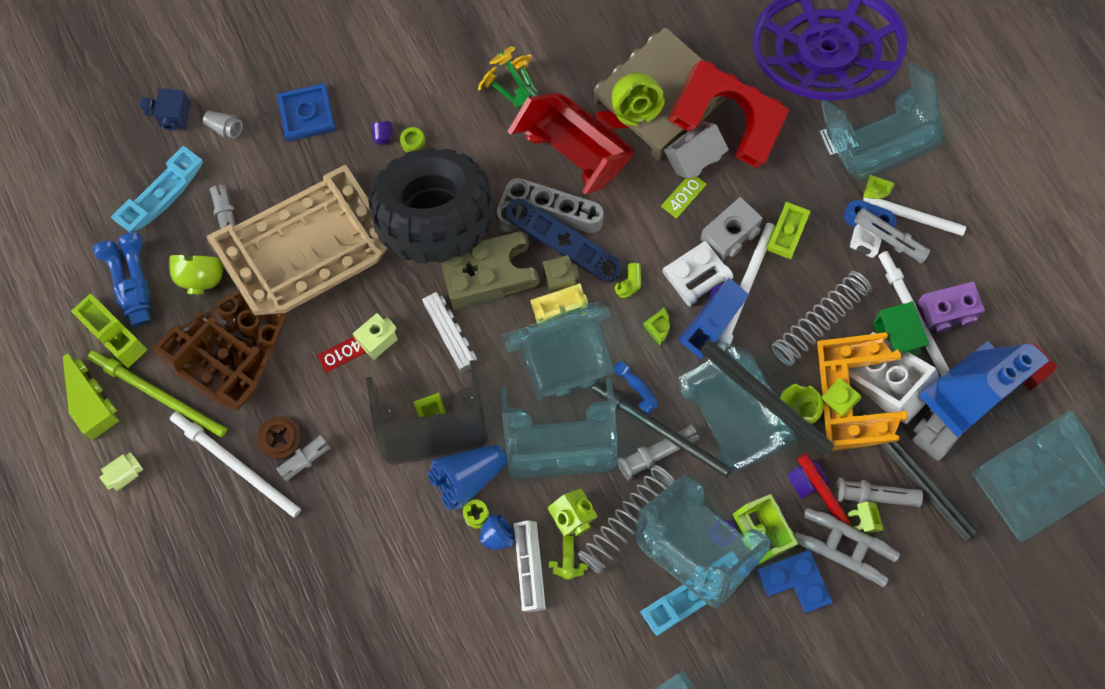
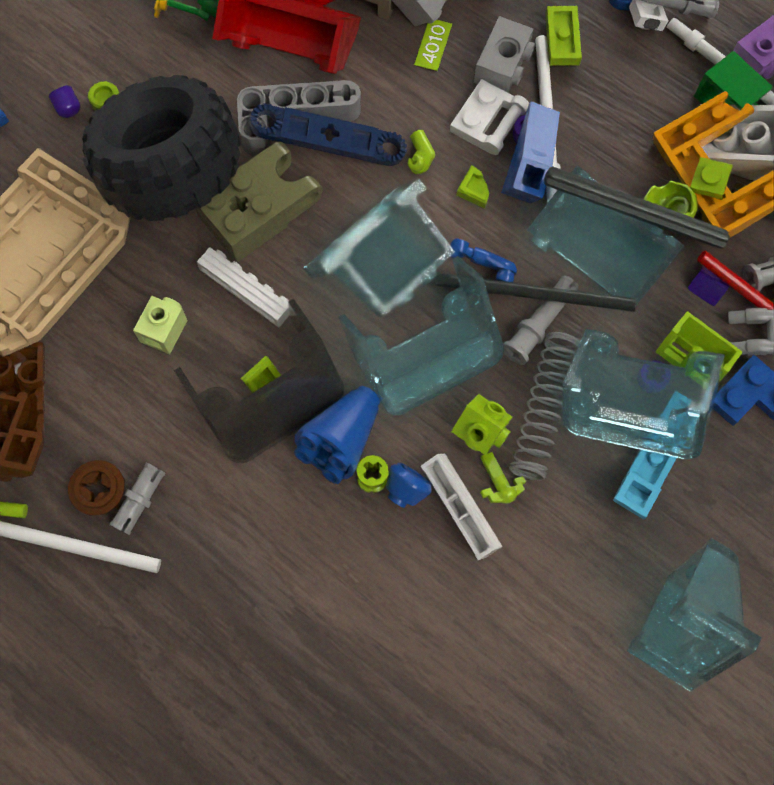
camera: 30 degrees left, 0 degrees up
(340, 354) = (127, 364): red sticker -> none
(558, 302) = (354, 204): light yellow hinge -> none
(559, 273) = (342, 174): olive brick -> none
(775, 347) = (662, 67): light grey piece -> none

